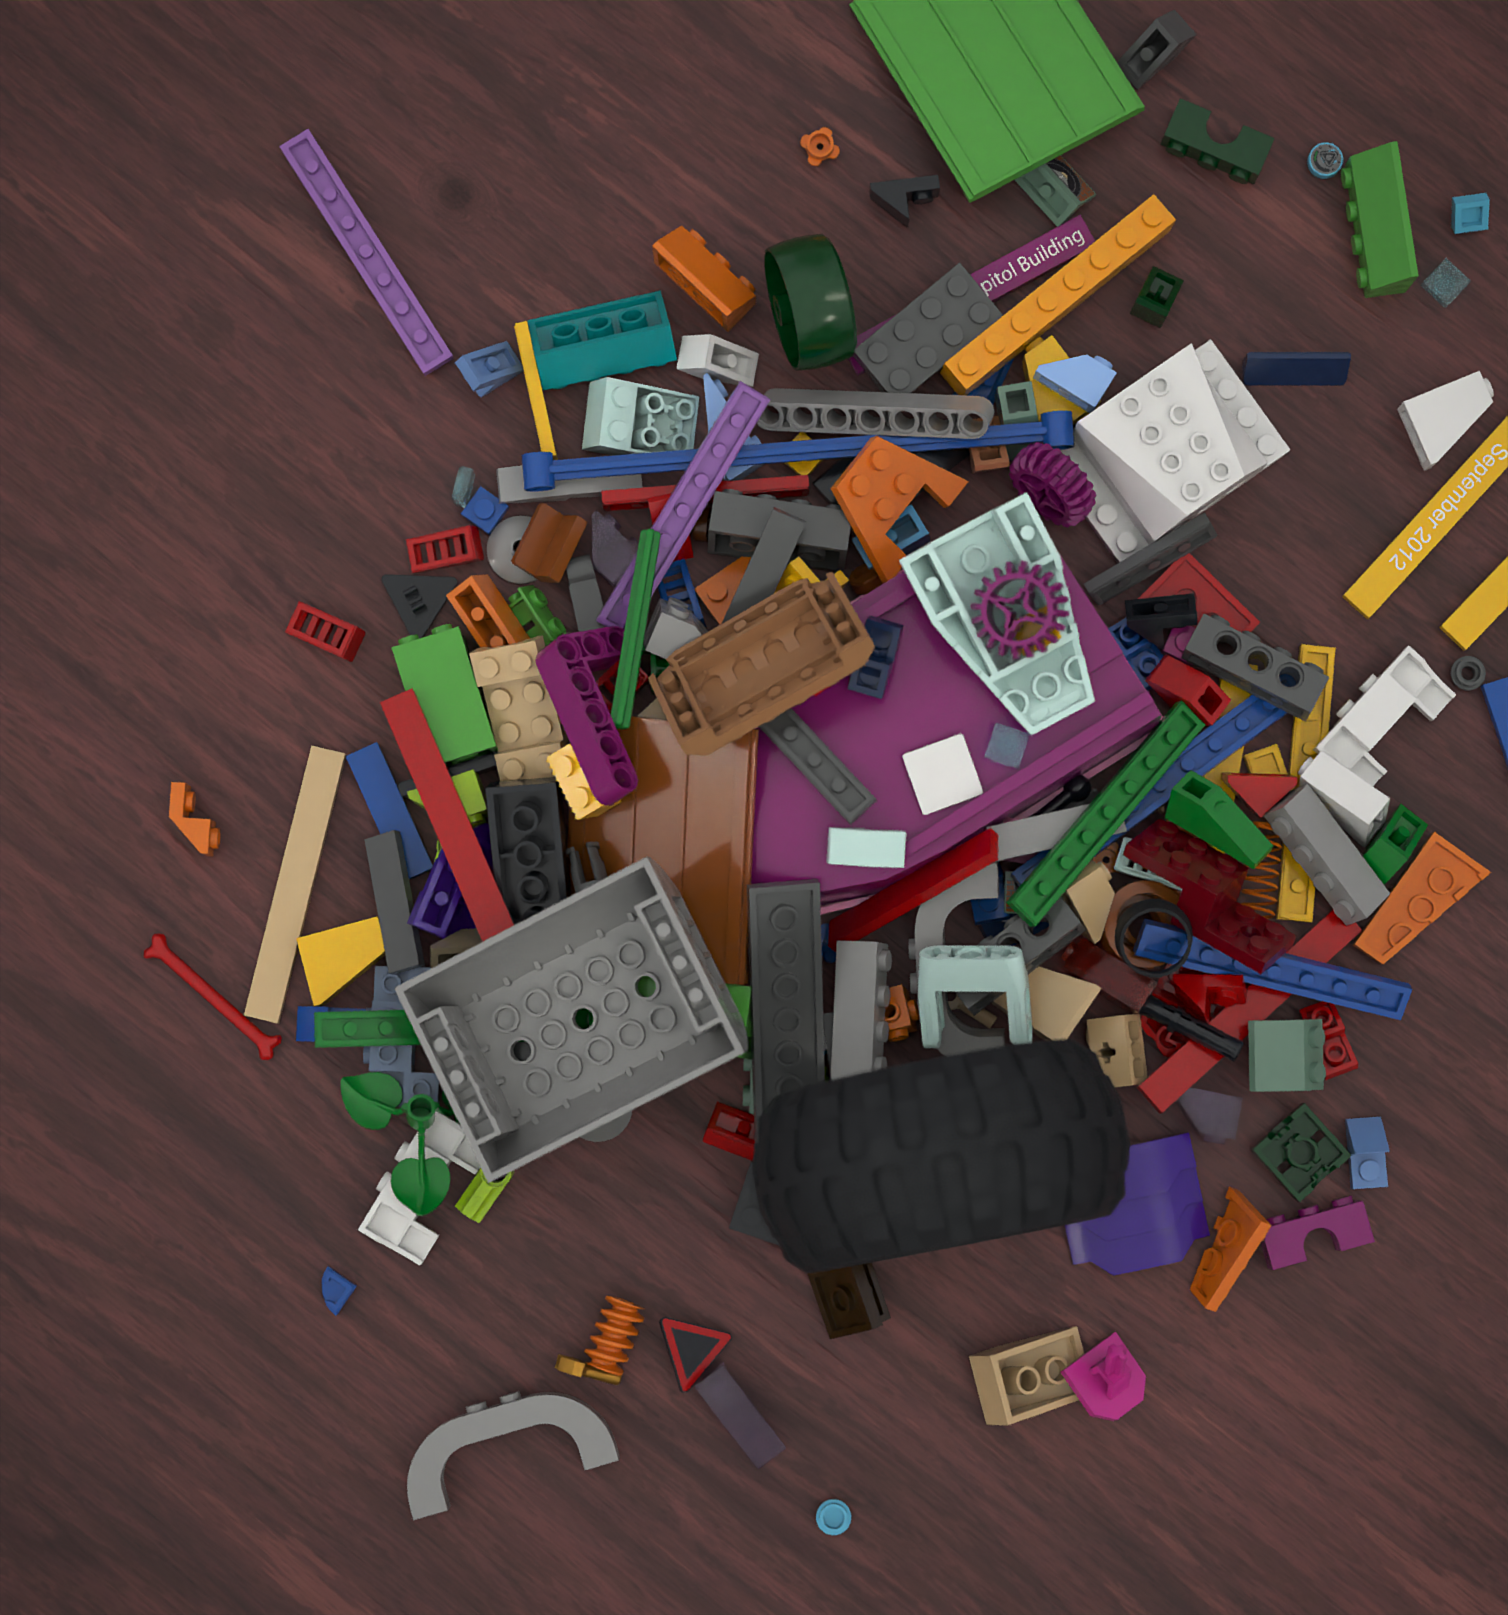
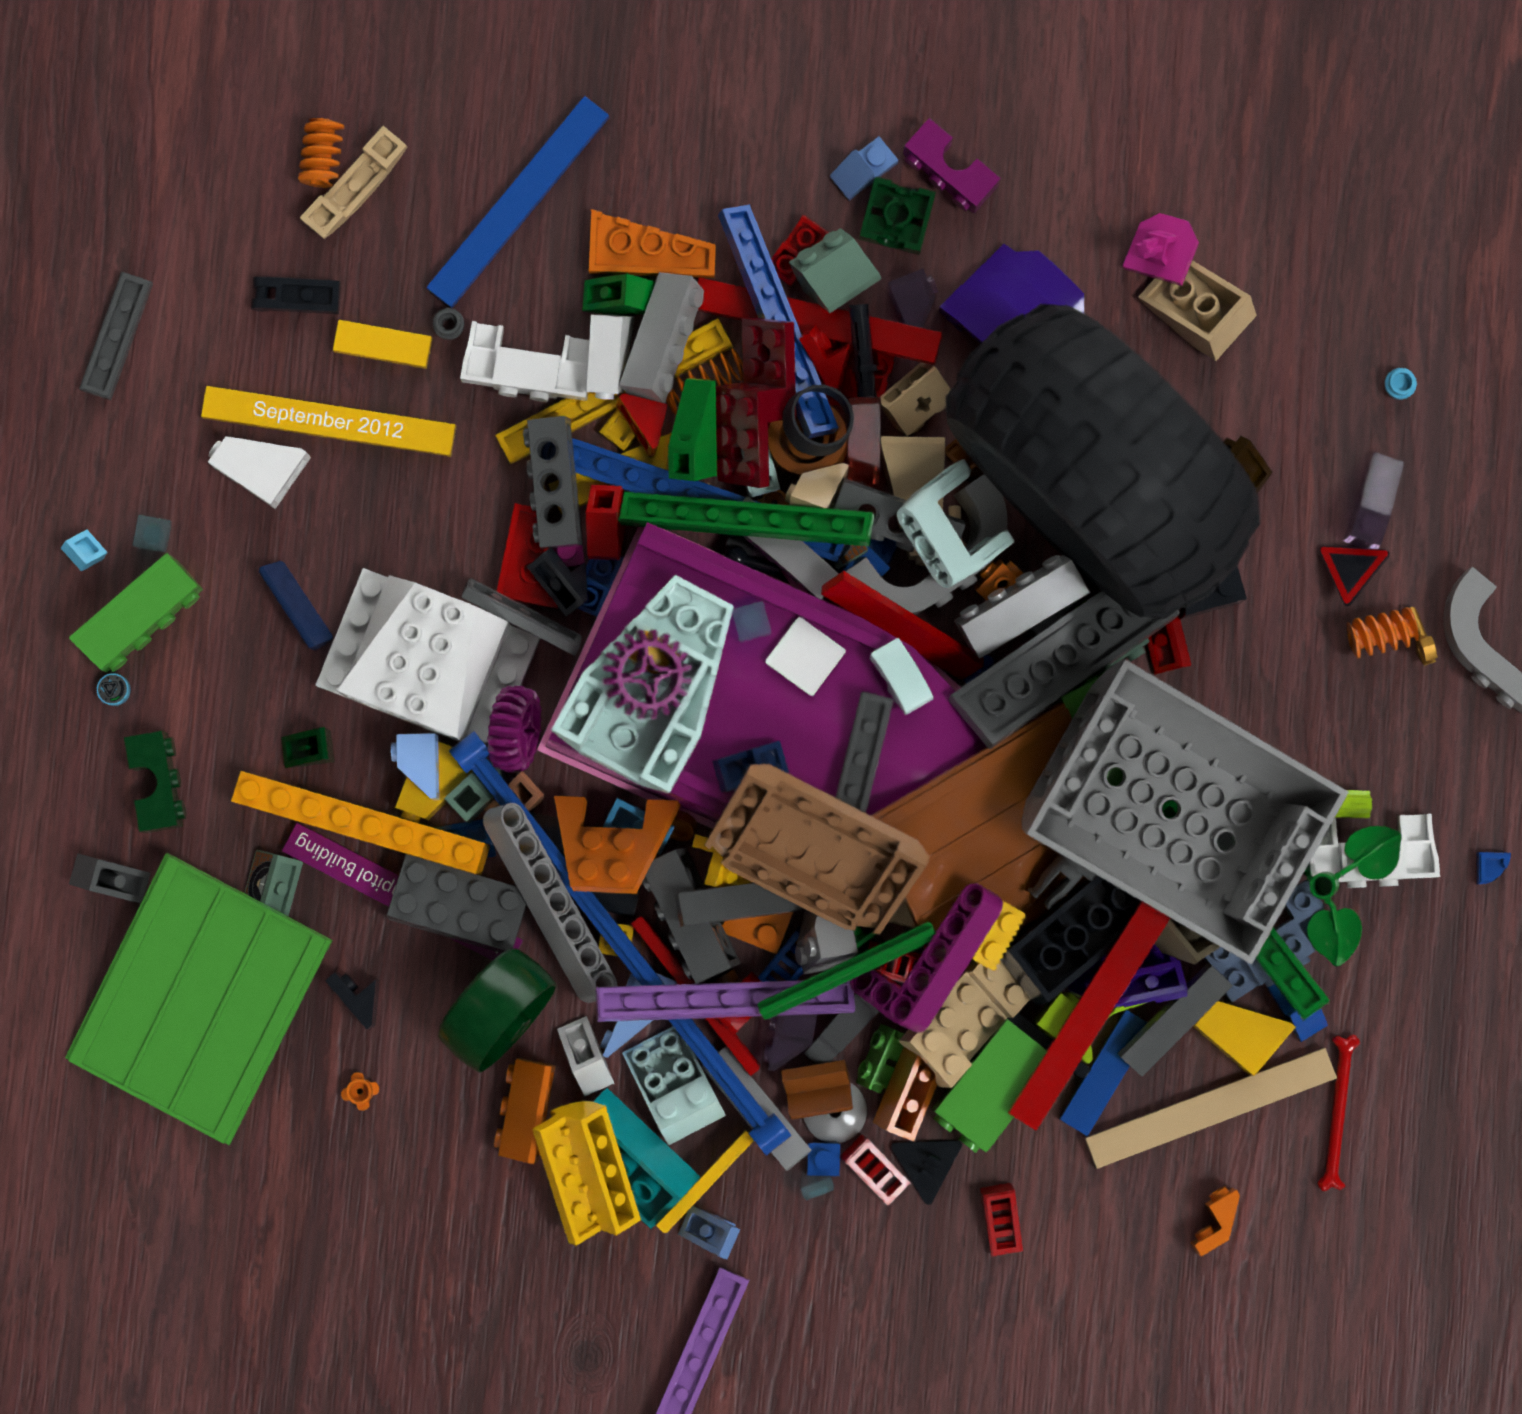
camera: 125 degrees left, 0 degrees up
(615, 288) = (586, 1171): none -> yellow brick
(1235, 1243) = (1005, 218): orange wing -> none

